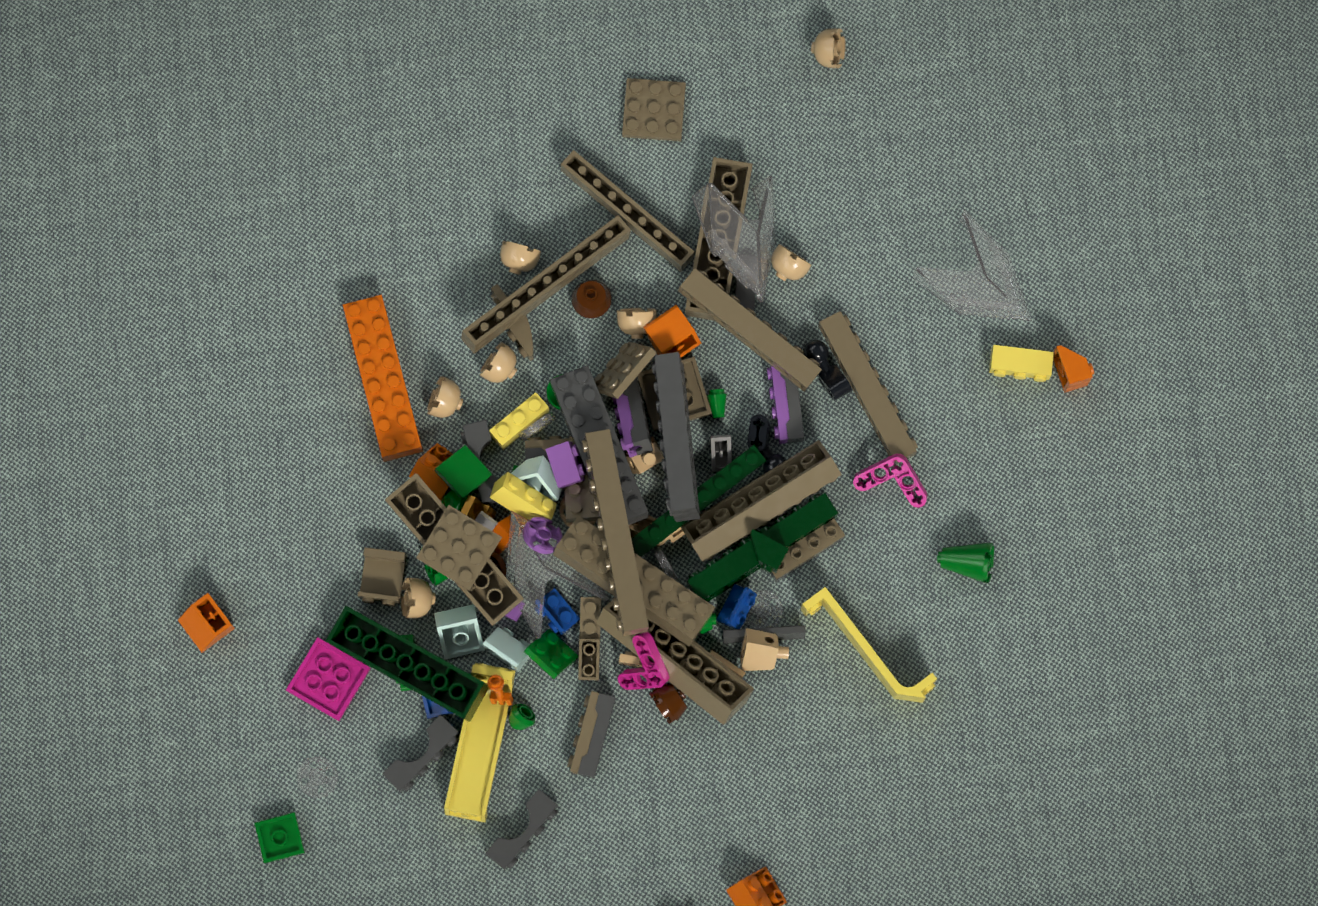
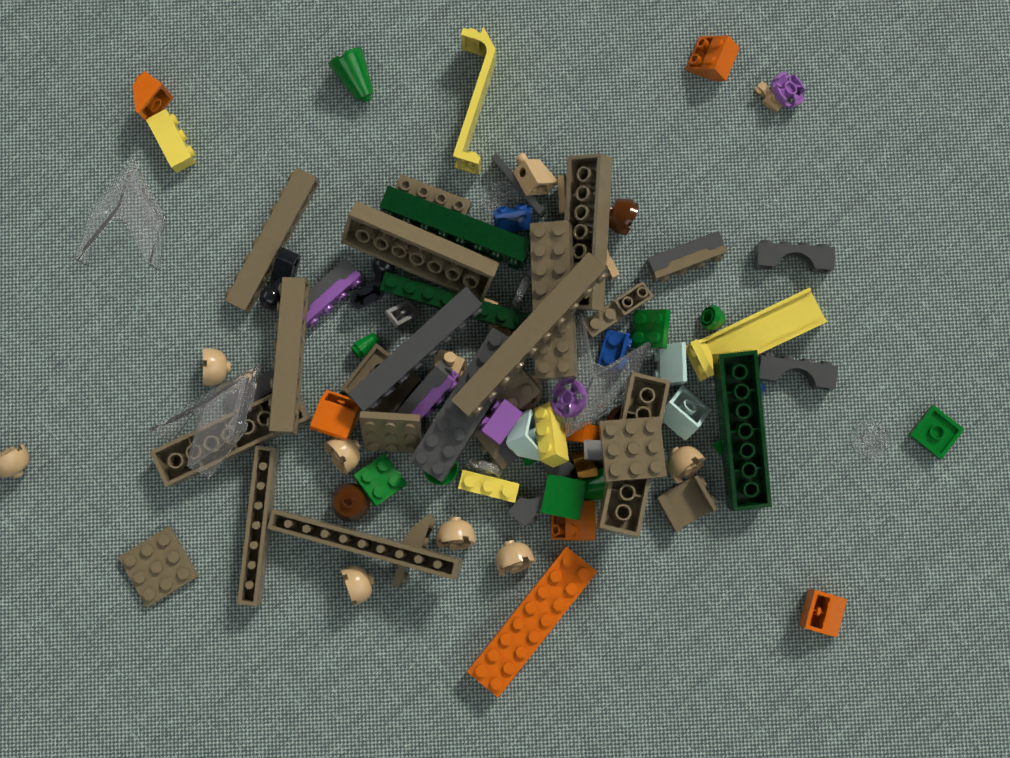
camera: 125 degrees left, 5 degrees up
(328, 679) = (796, 485): dark pink plate -> none
(496, 684) = (710, 347): orange hinge -> none
(591, 335) = (379, 480): none -> green plate
(644, 646) = (612, 240): dark pink beam -> none
(768, 552) = (458, 213): dark green slope -> none
(896, 472) = (323, 170): dark pink beam -> none

